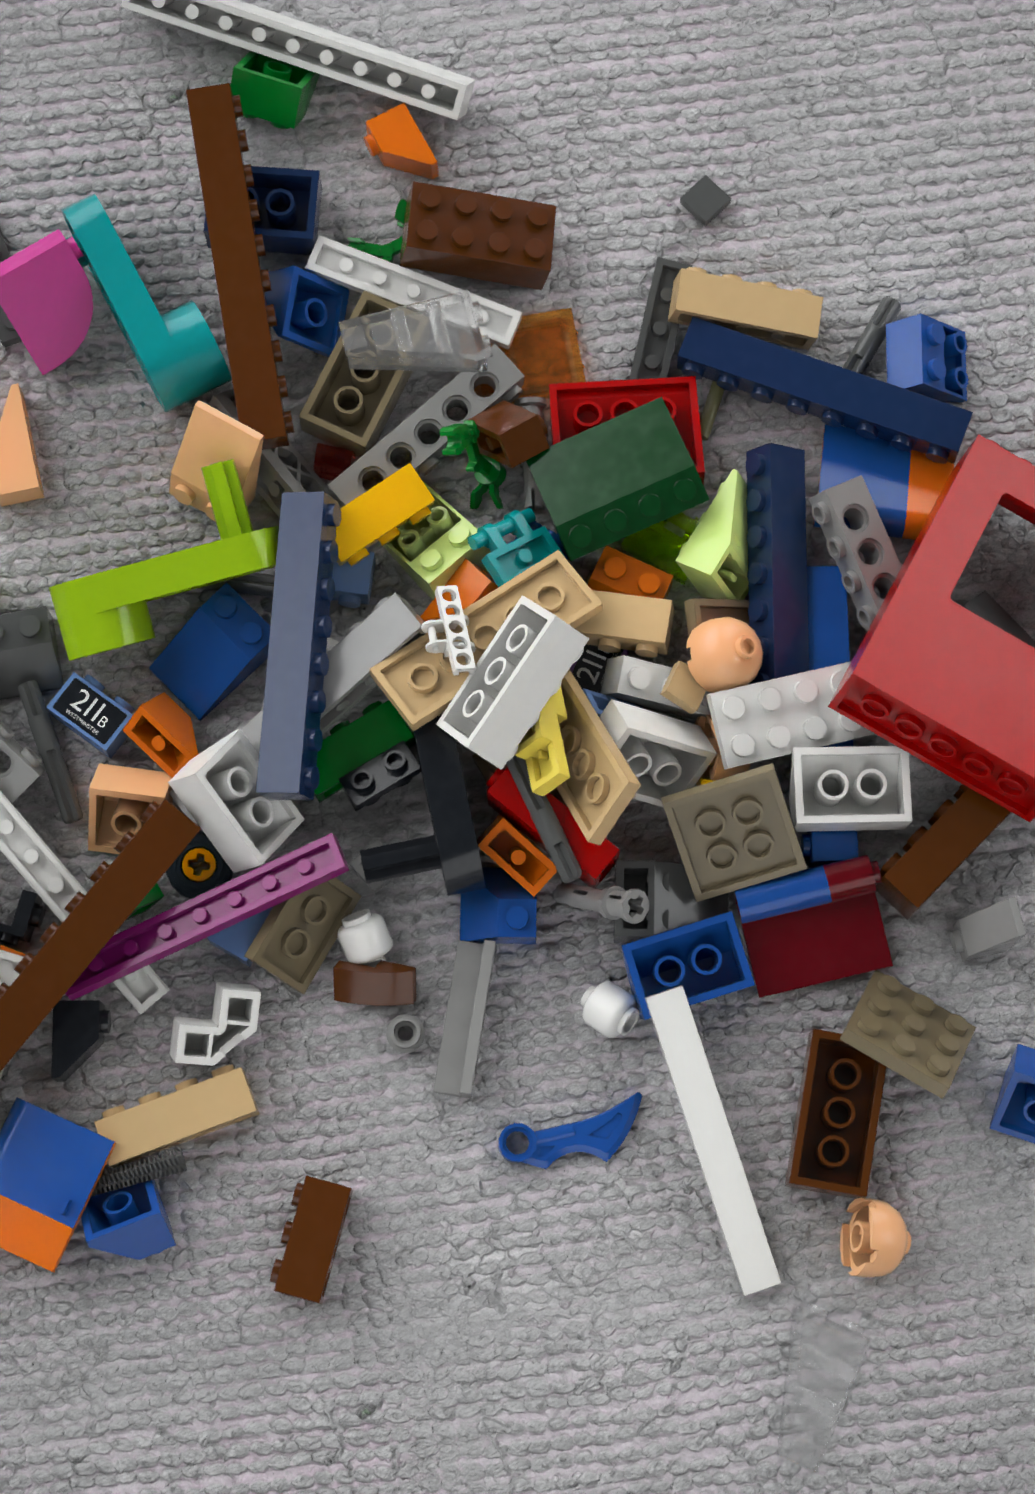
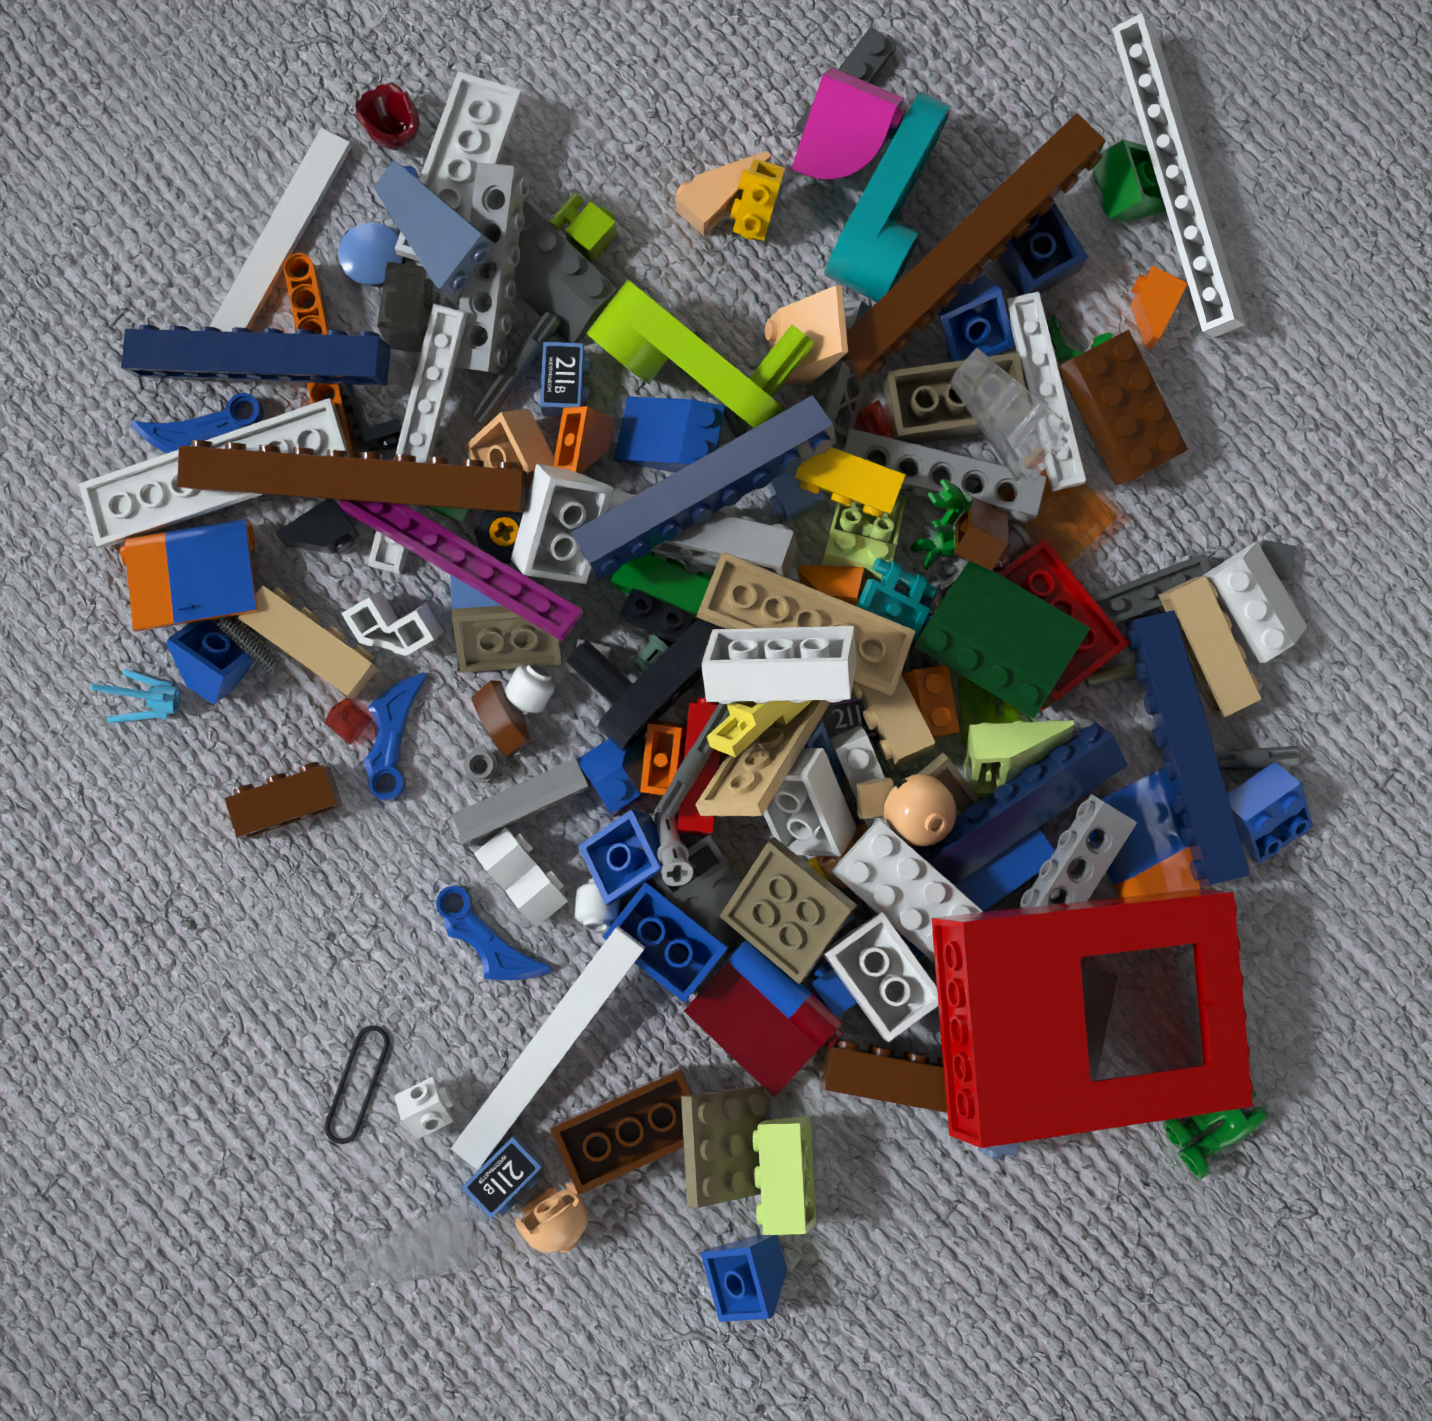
camera: 50 degrees right, 5 degrees up
(53, 423) = (758, 199): none -> yellow brick
(132, 1293) = (162, 698): none -> medium azure plant
(276, 1131) = (347, 720): none -> clear red slope
(298, 1087) = (390, 715): none -> blue piece
(410, 807) = (654, 644): none -> sand green bush
(448, 623) = (777, 602): white piece -> none
(526, 1063) = (525, 882): none -> white brick
(581, 952) = (622, 855): none -> blue slope
(640, 1338) = (370, 1089): none -> black piece
(692, 1291) = (424, 1108): none -> white brick
(735, 243) = (1257, 604): none -> white slope
(804, 1261) = (503, 1177): none -> brick
(970, 1000) = (785, 1176): none -> yellowish green slope
(988, 931) = (846, 1155): light grey slope -> none

